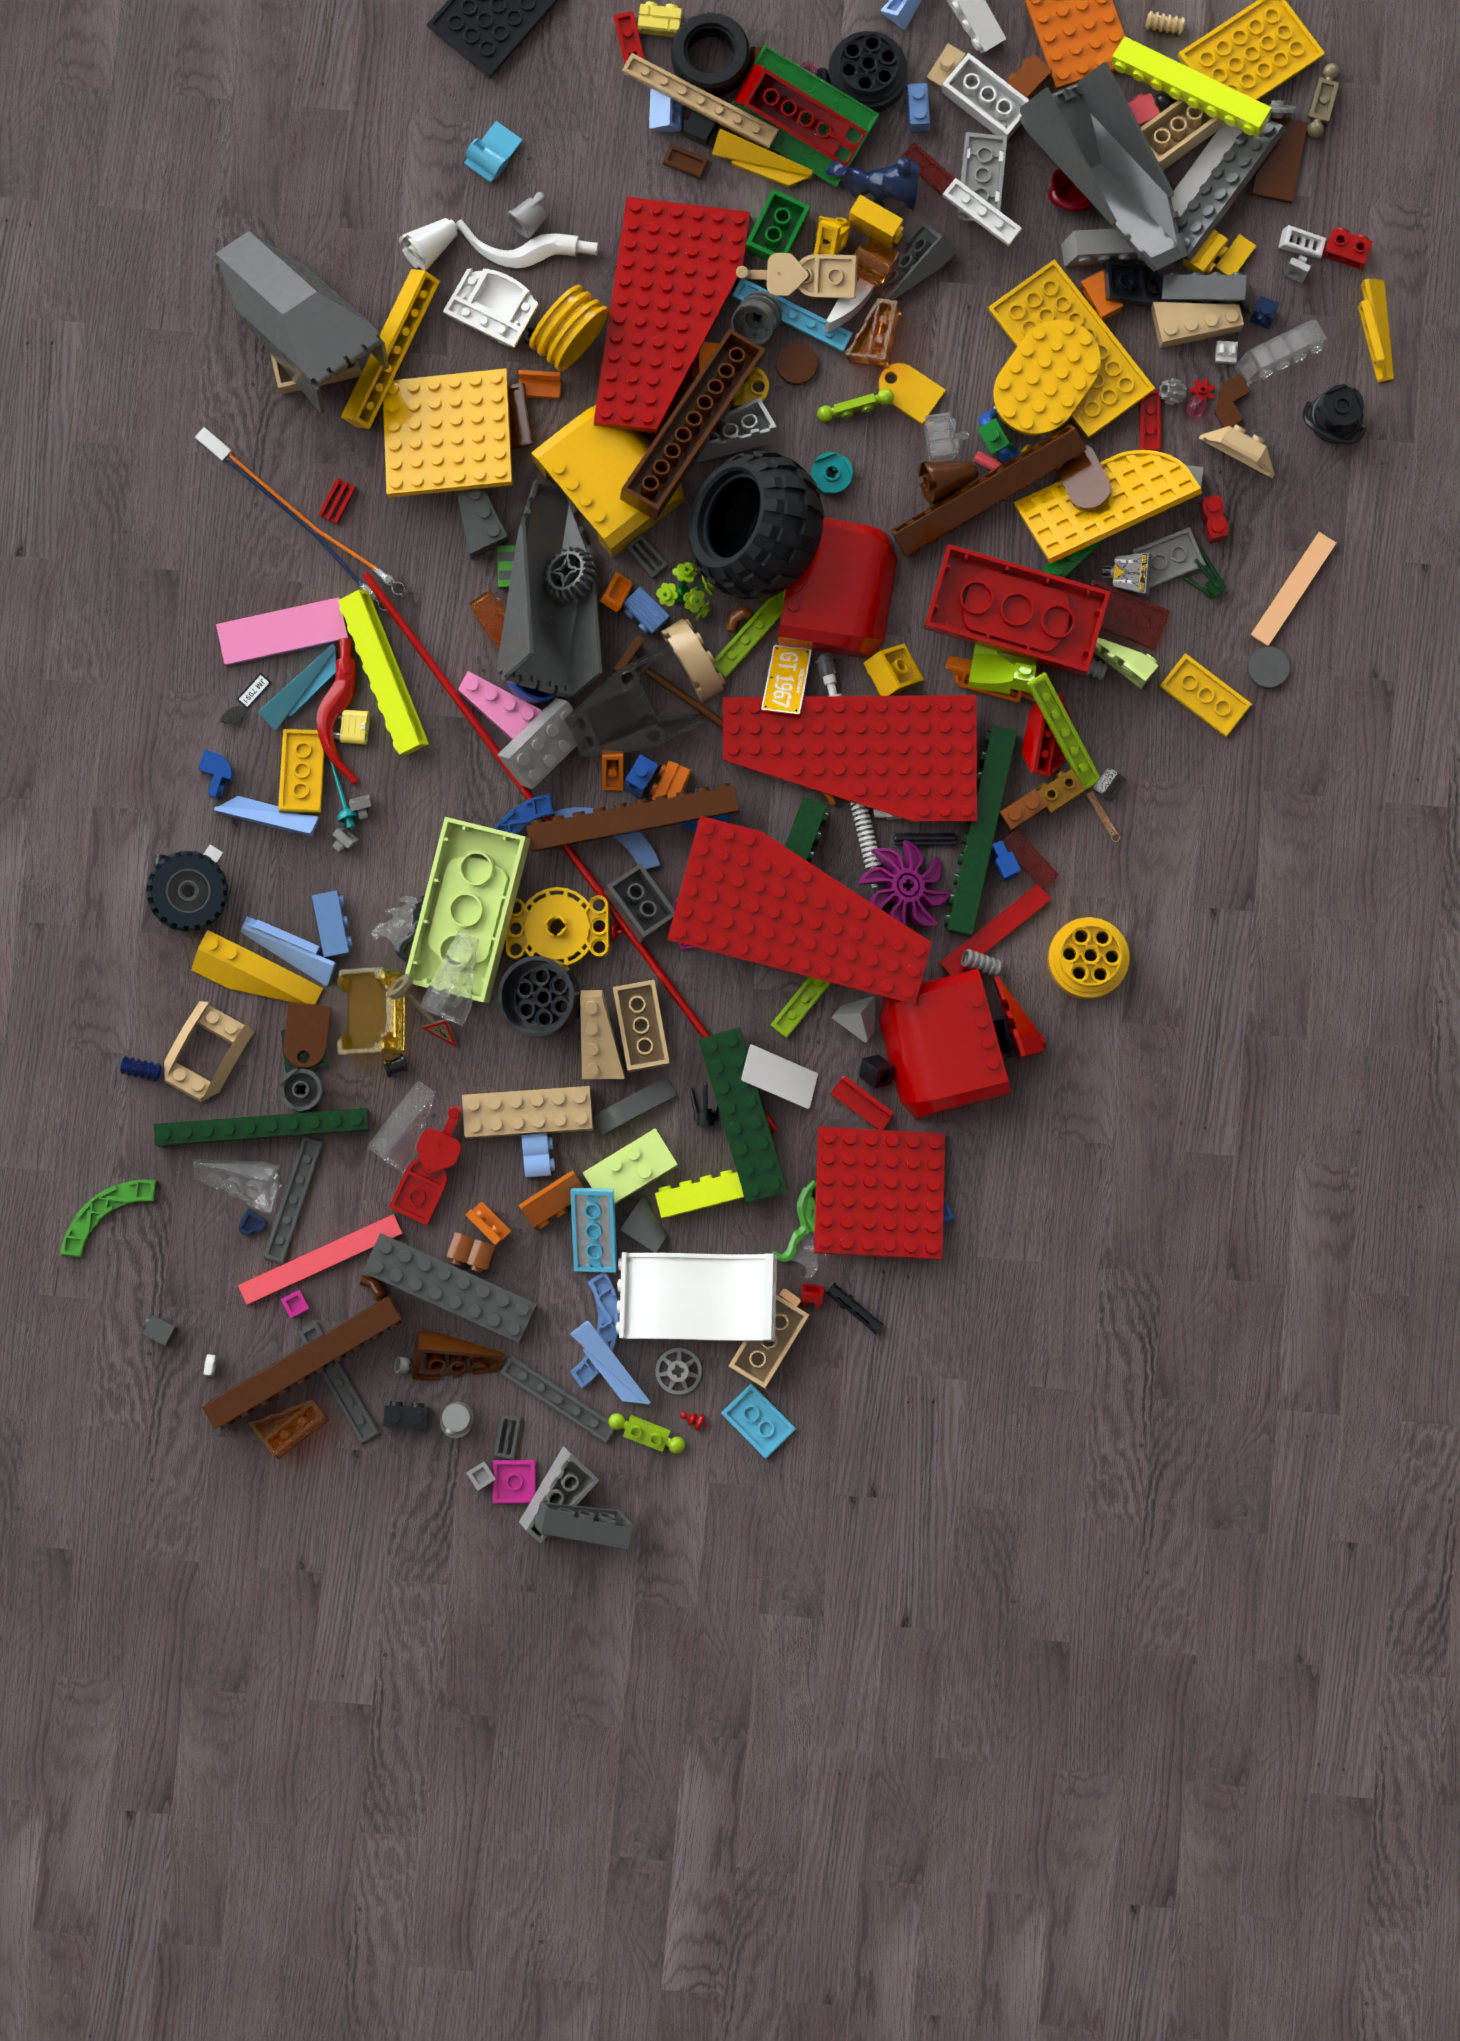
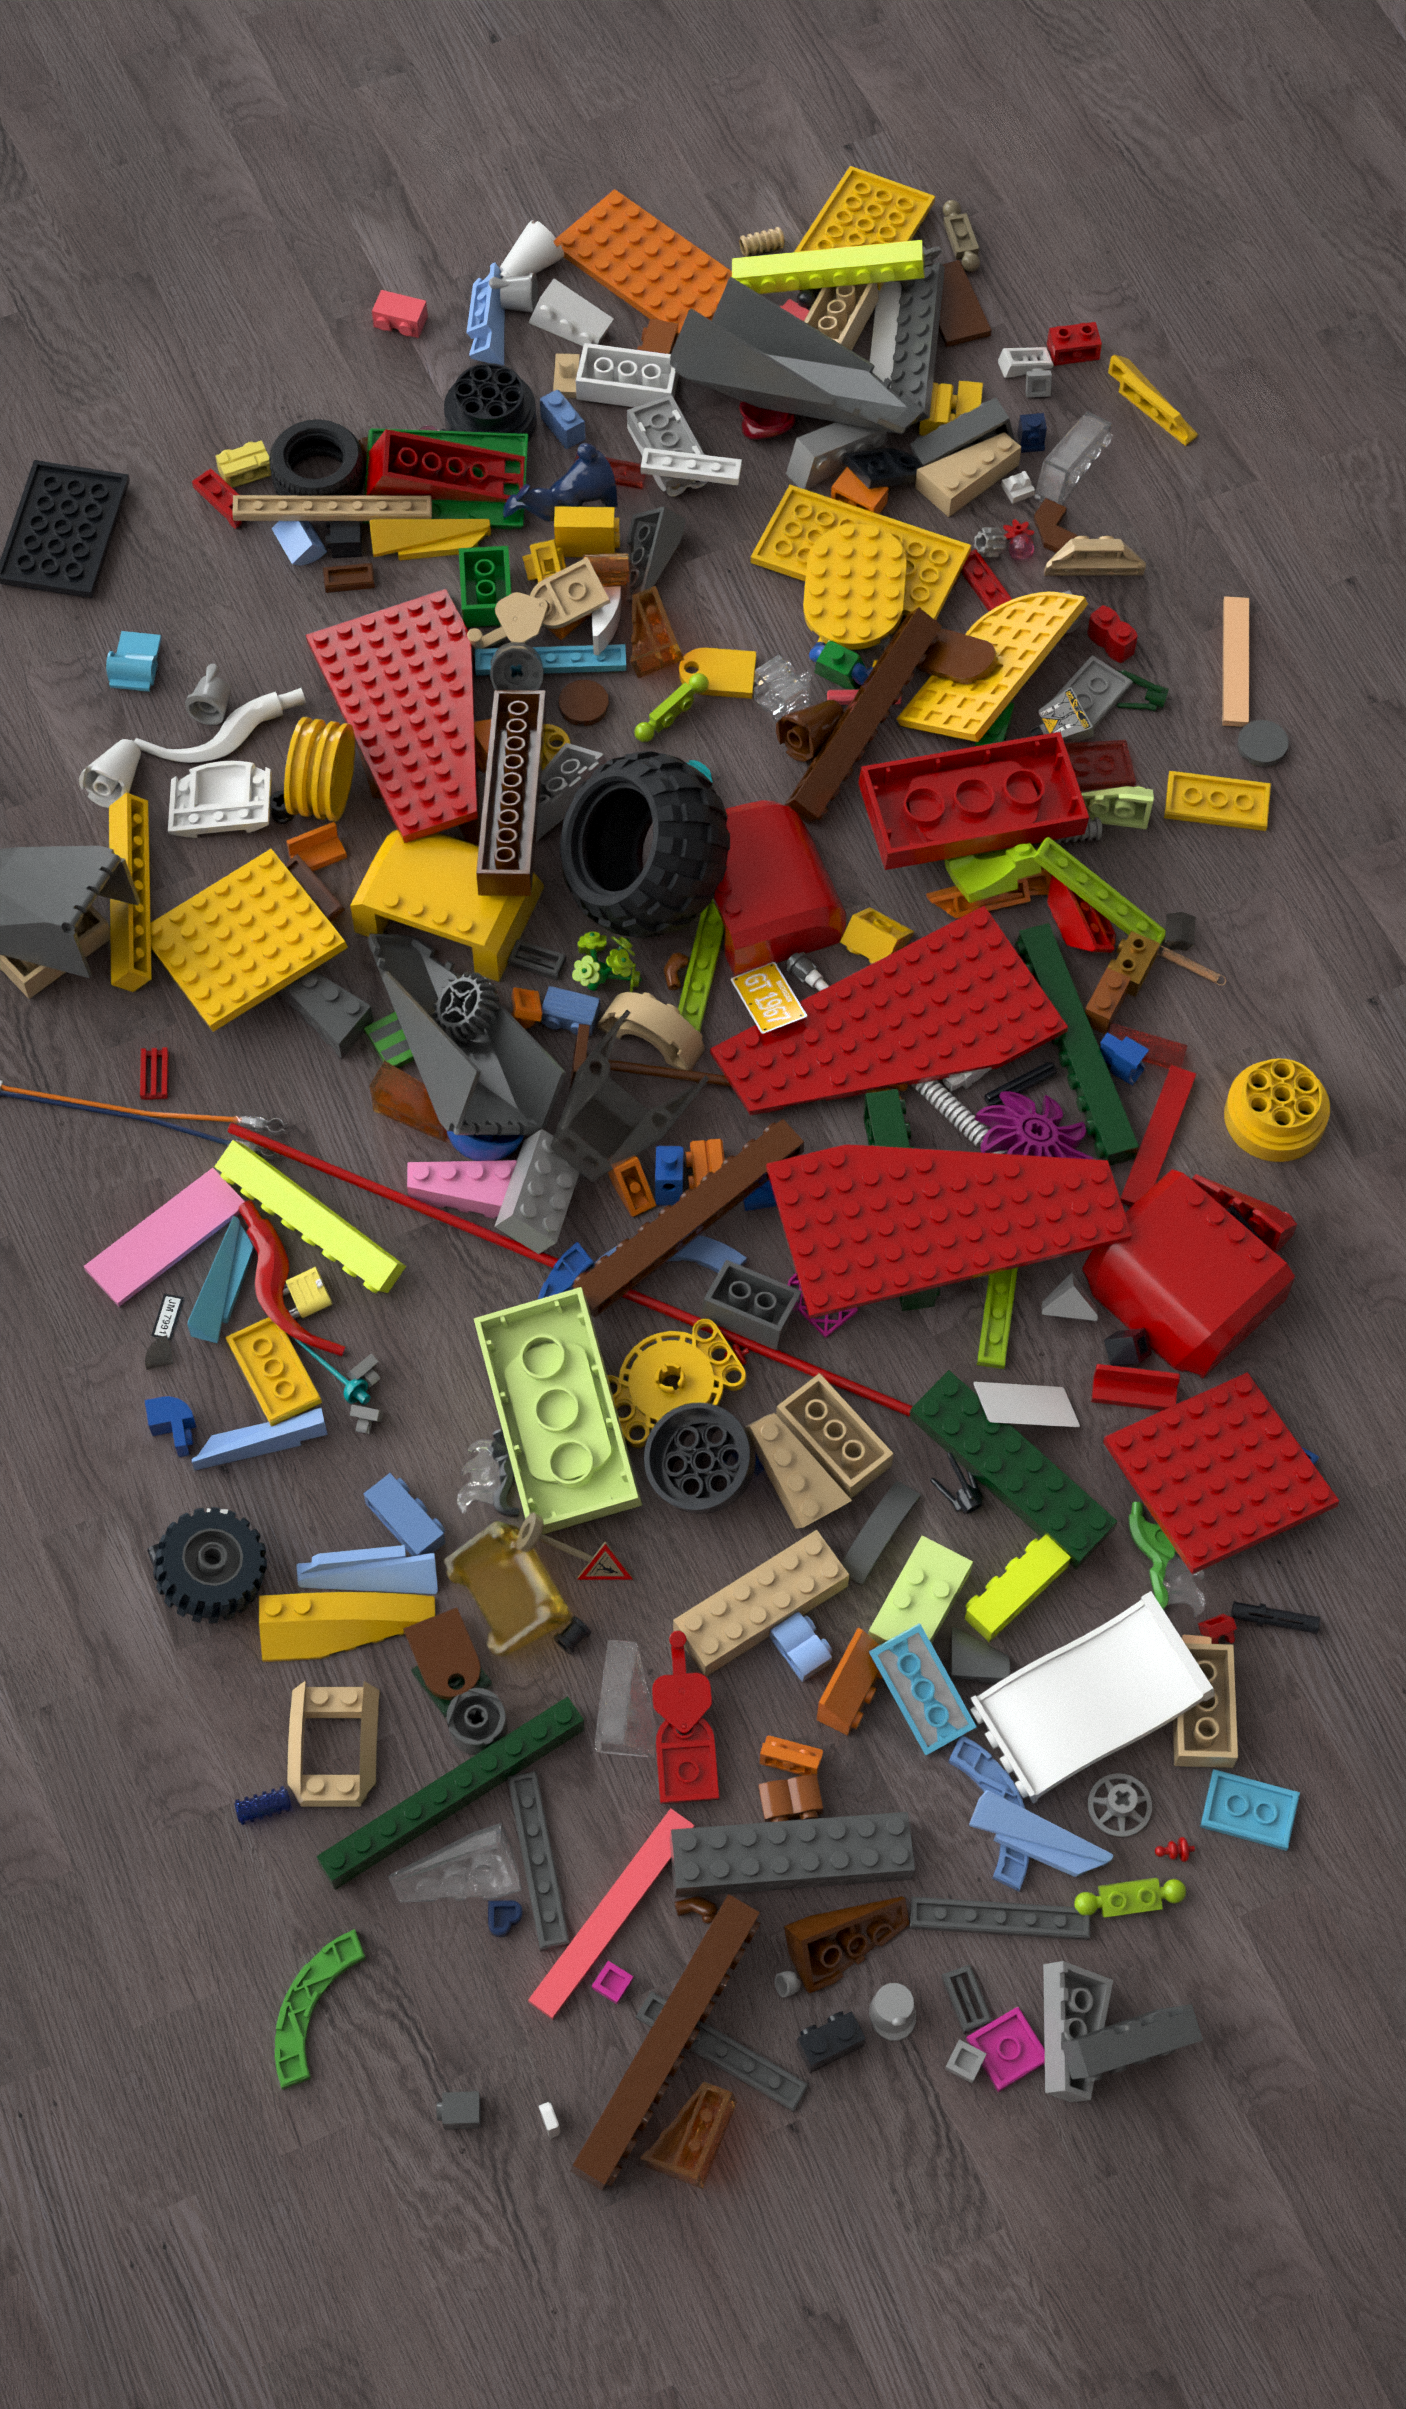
camera: 30 degrees left, 20 degrees down
(453, 983) = (591, 1496): clear wedge -> none
(984, 964) = (1154, 1171): light grey piece -> none
(1336, 415) = (1169, 481): black piece -> none

